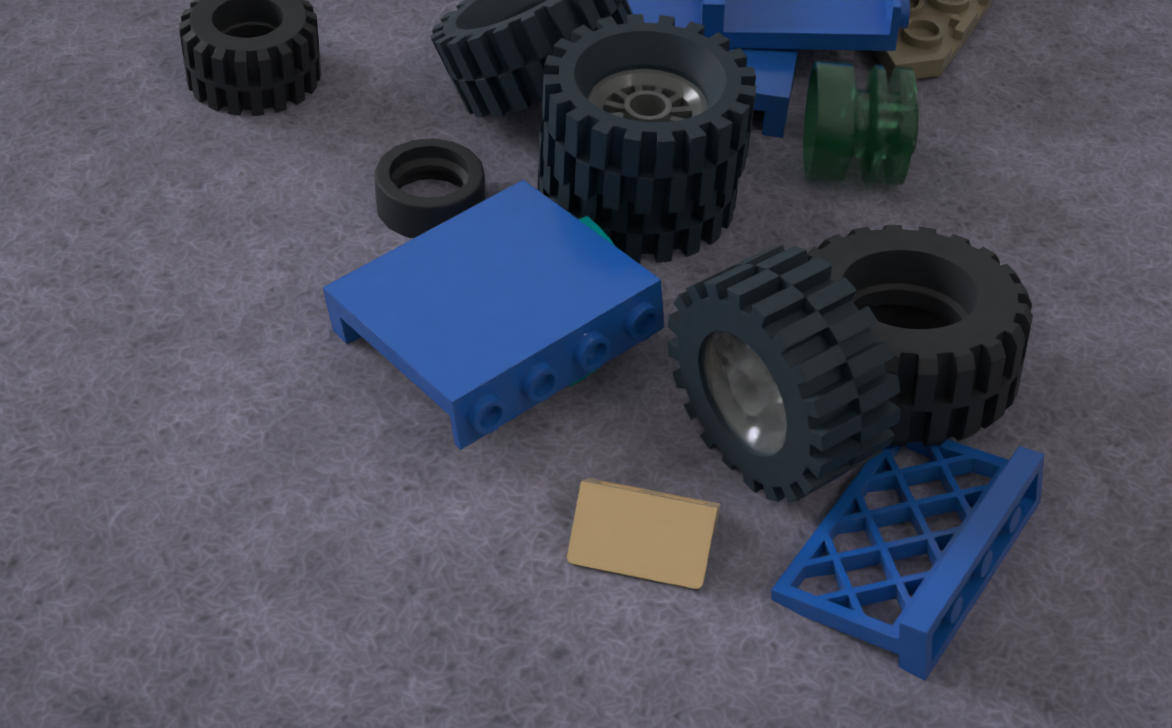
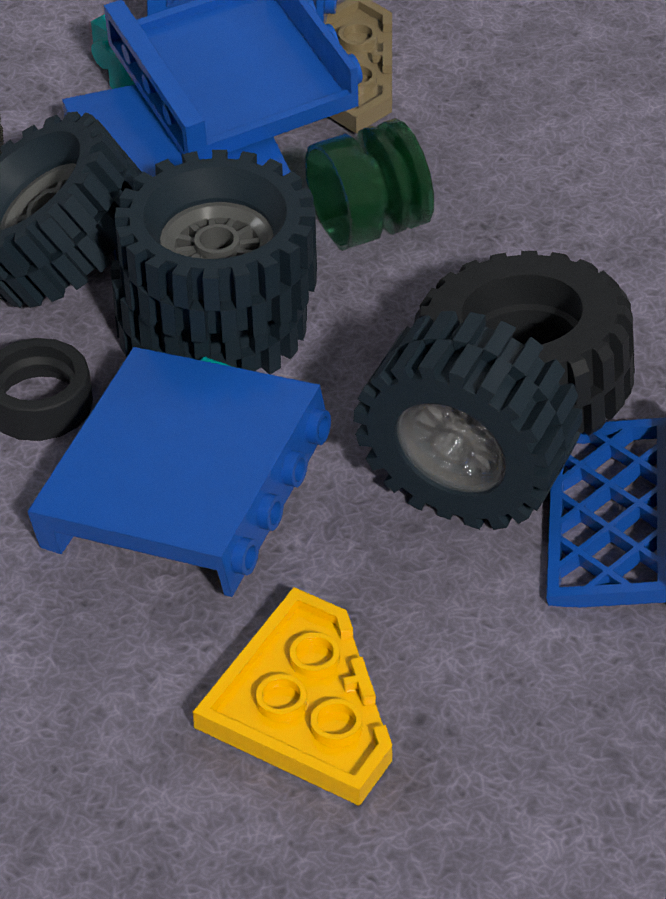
camera: 25 degrees left, 0 degrees up
(454, 581) = (303, 700): none -> yellow plate
(642, 533) = (422, 597): tan panel -> none

